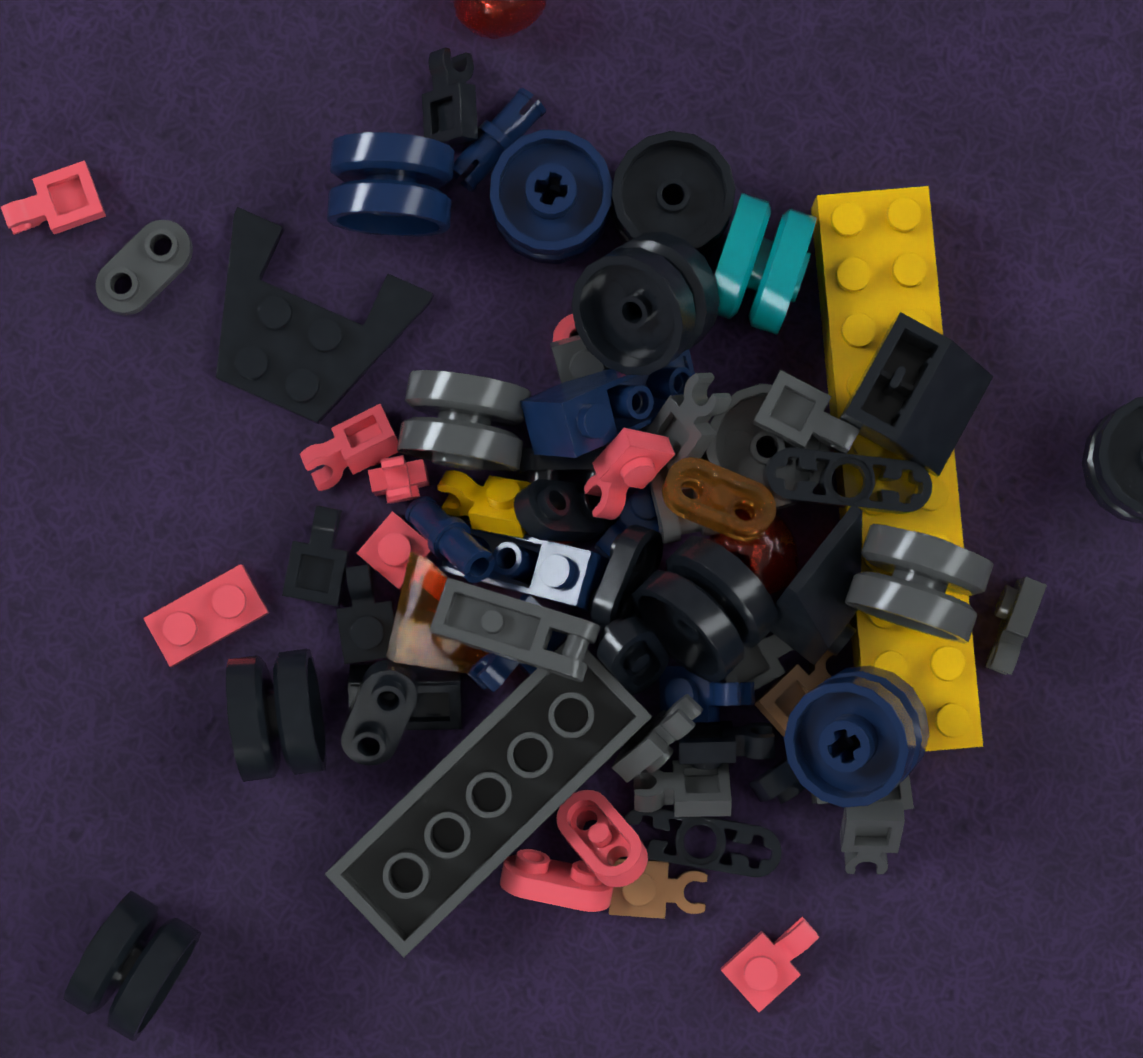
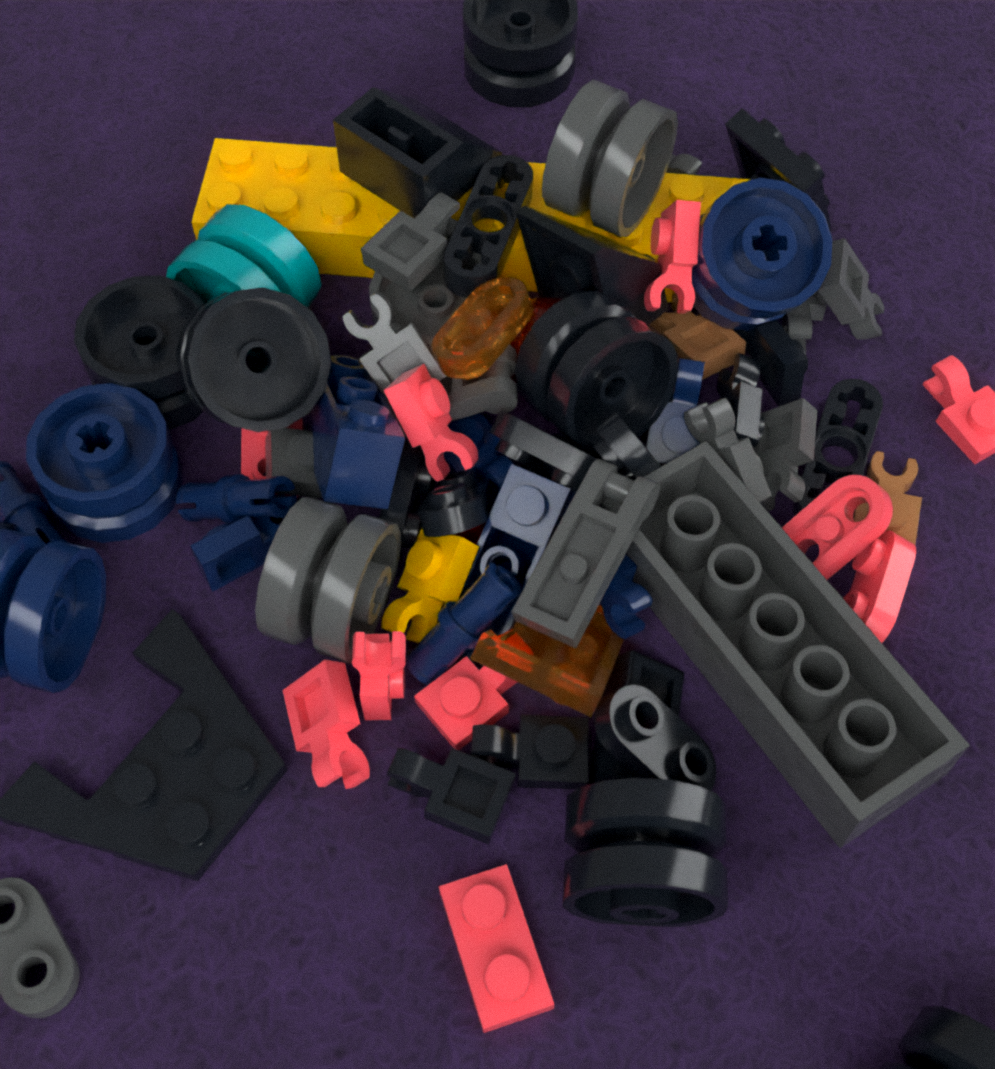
camera: 80 degrees left, 25 degrees down
(495, 328) = (234, 549): none -> dark blue plate
(535, 320) = (235, 498): none -> dark blue pin
(847, 660) = (676, 242): none -> coral plate
(1003, 747) = (763, 154): none -> black plate

